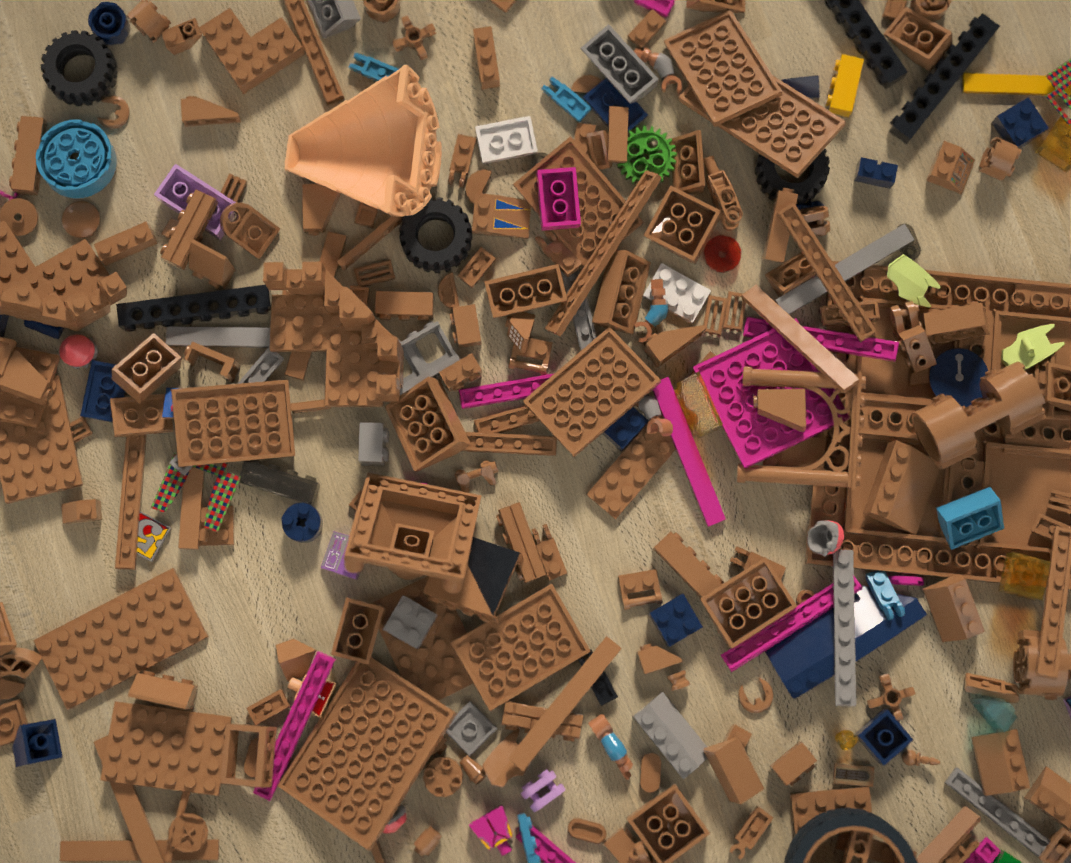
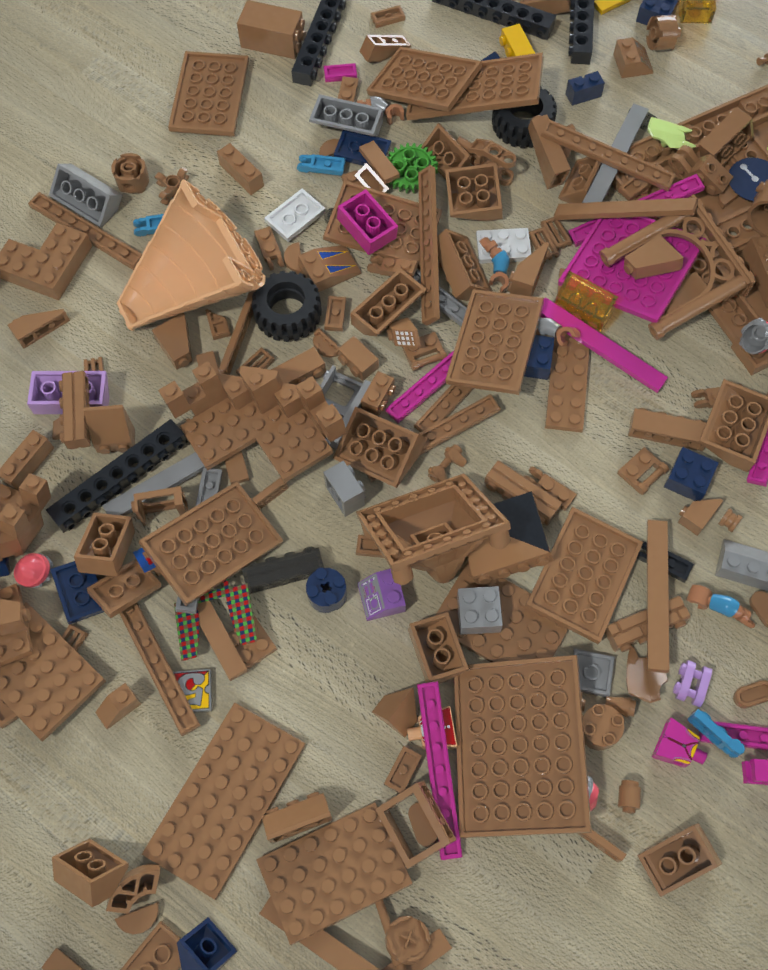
camera: 30 degrees left, 15 degrees down
(249, 229) = (126, 387): medium nougat tile -> none
(722, 244) = (517, 193): clear red plate -> none

